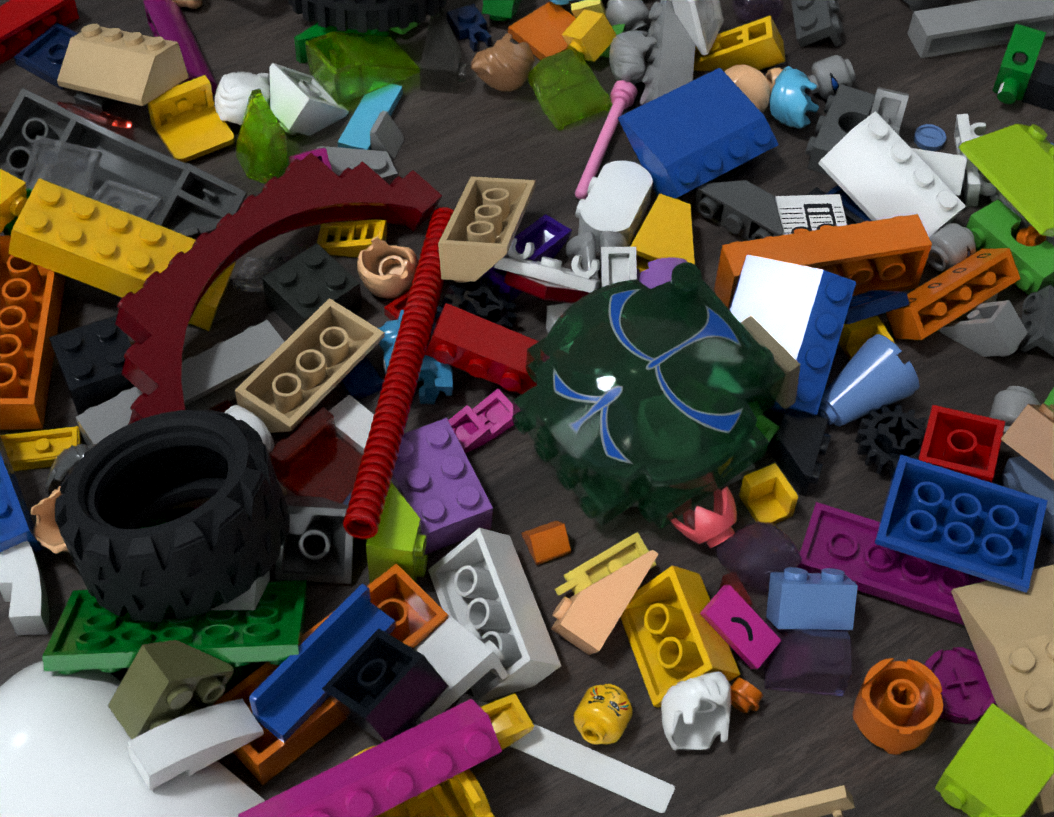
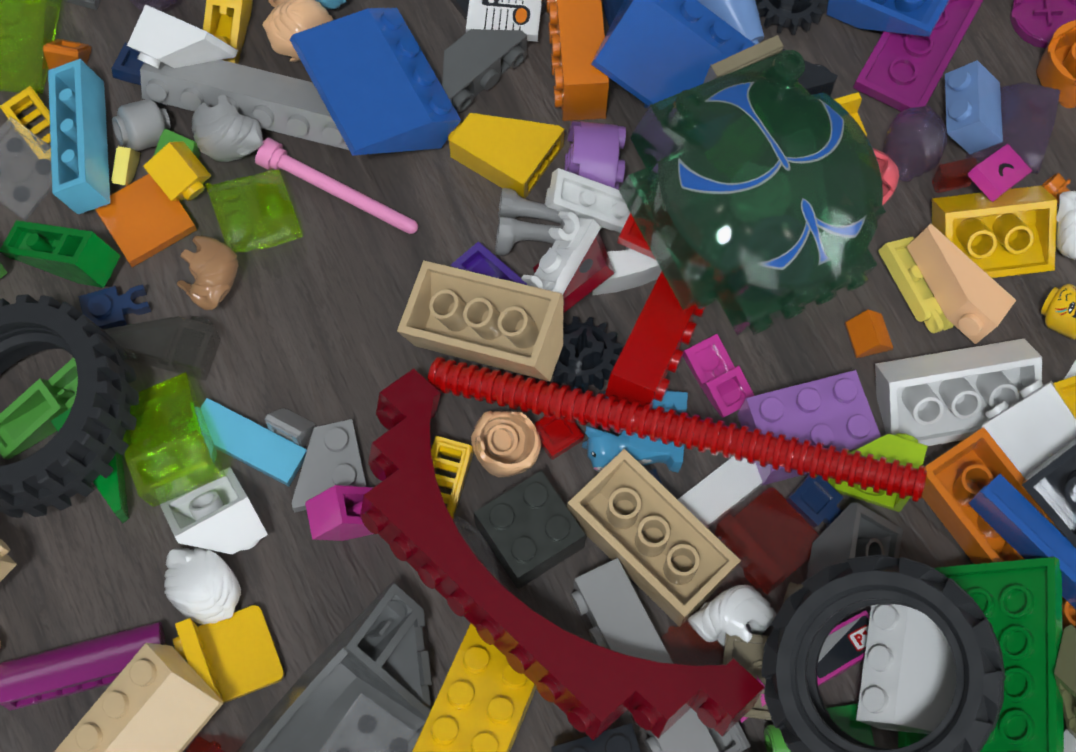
camera: 80 degrees left, 15 degrees up
(261, 141) = (285, 569): clear neon green slope -> none
(615, 200) = (445, 192): white brick -> none

